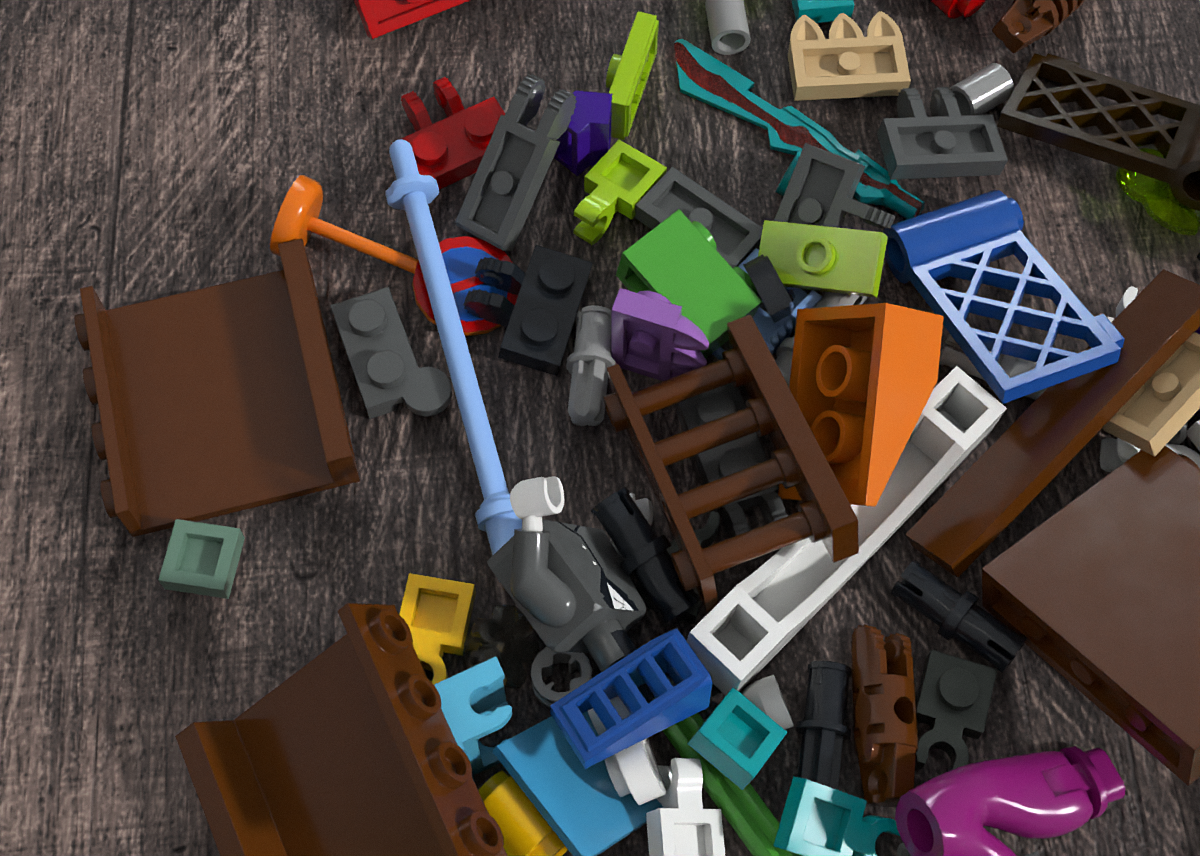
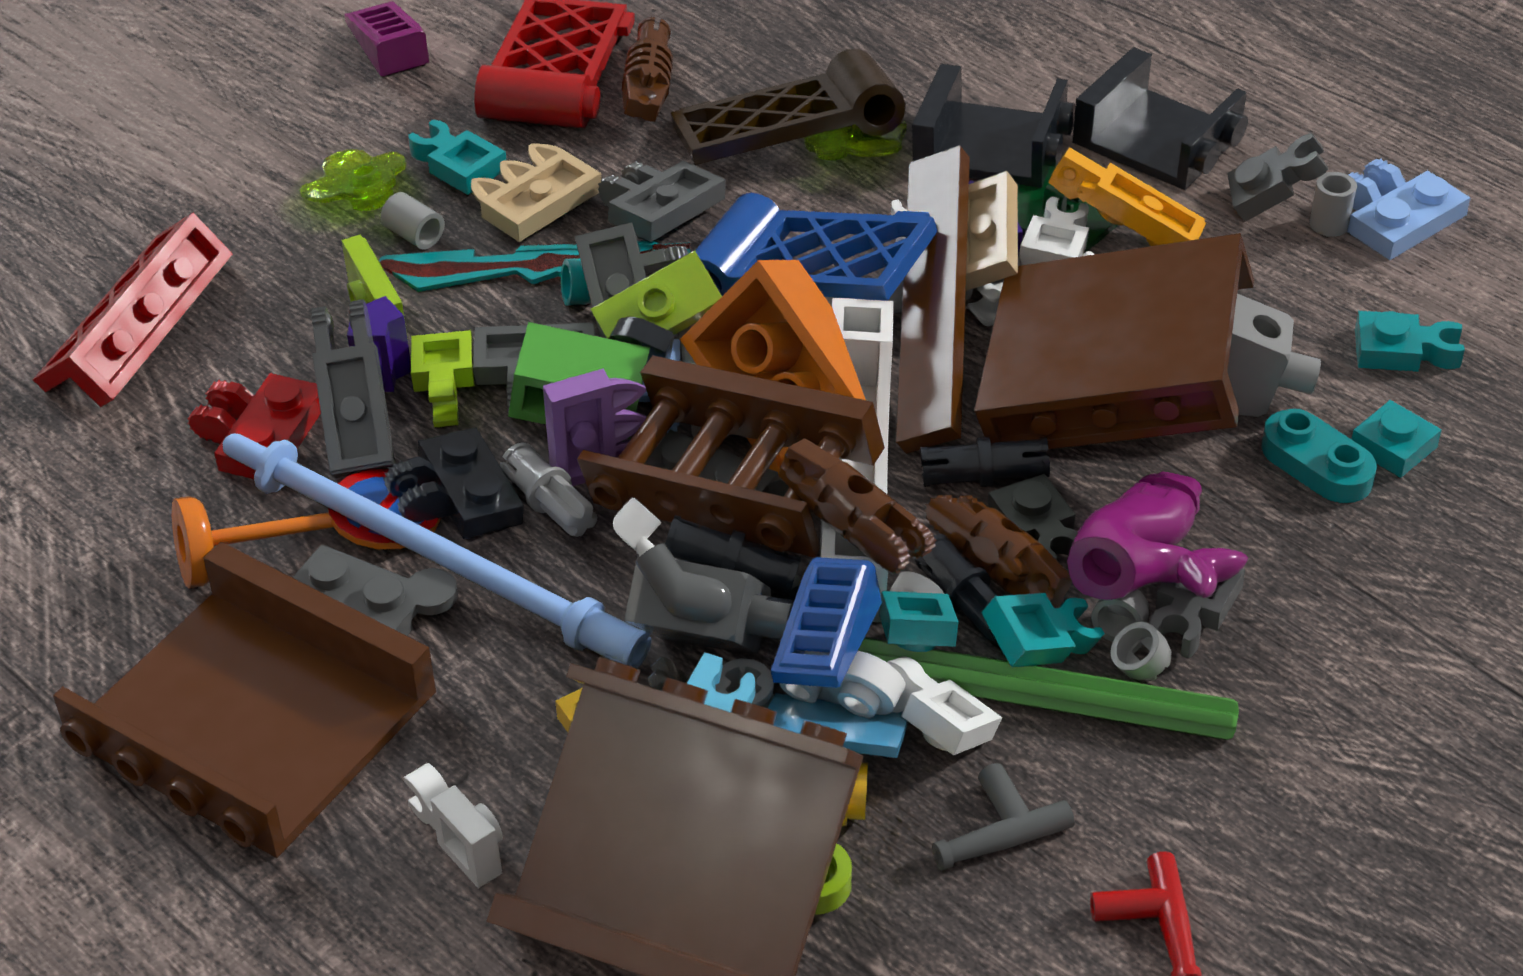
camera: 40 degrees left, 20 degrees down
(201, 558) = (365, 815): sand green plate -> none
(247, 632) = (462, 830): none -> white plate
(751, 574) = (855, 507): none -> reddish brown hinge
(983, 90) = (660, 148): light grey hinge -> none

